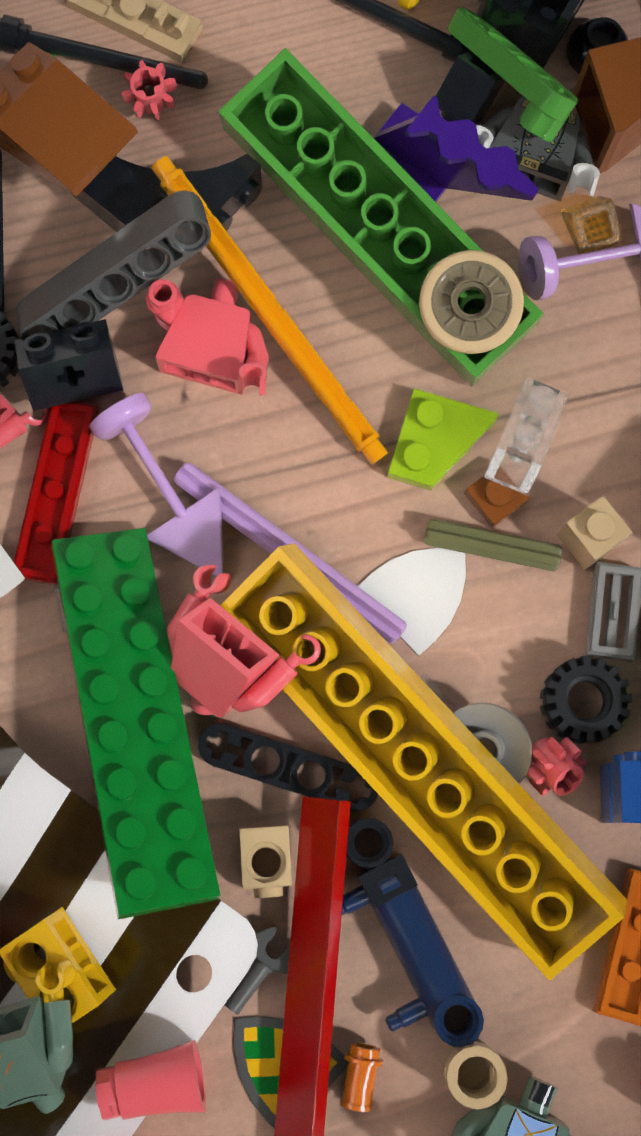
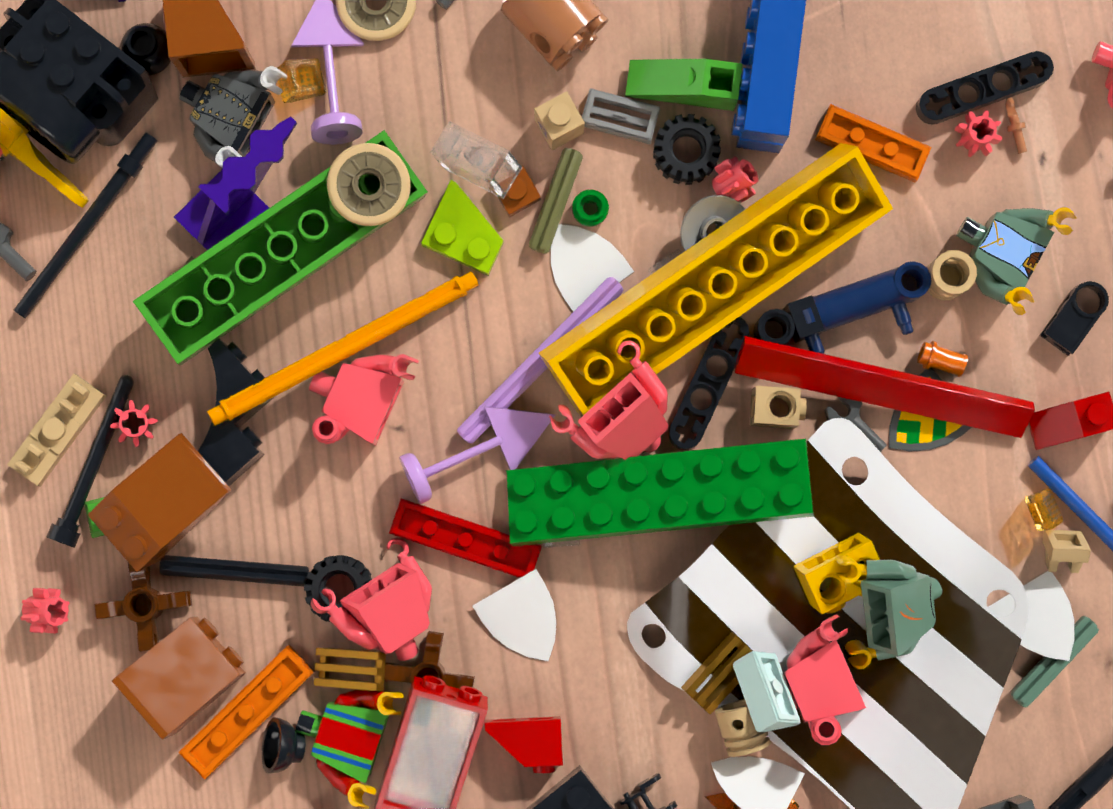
camera: 85 degrees left, 5 degrees up
(68, 364) = (367, 514): black brick -> none
(118, 266) = (300, 468): dark grey beam -> none
(153, 1084) = (930, 510): coral plant -> none
(468, 89) = (174, 159): black brick -> none
(500, 579) = (594, 197): none -> green plate
(549, 100) = (201, 97): bright green beam -> none

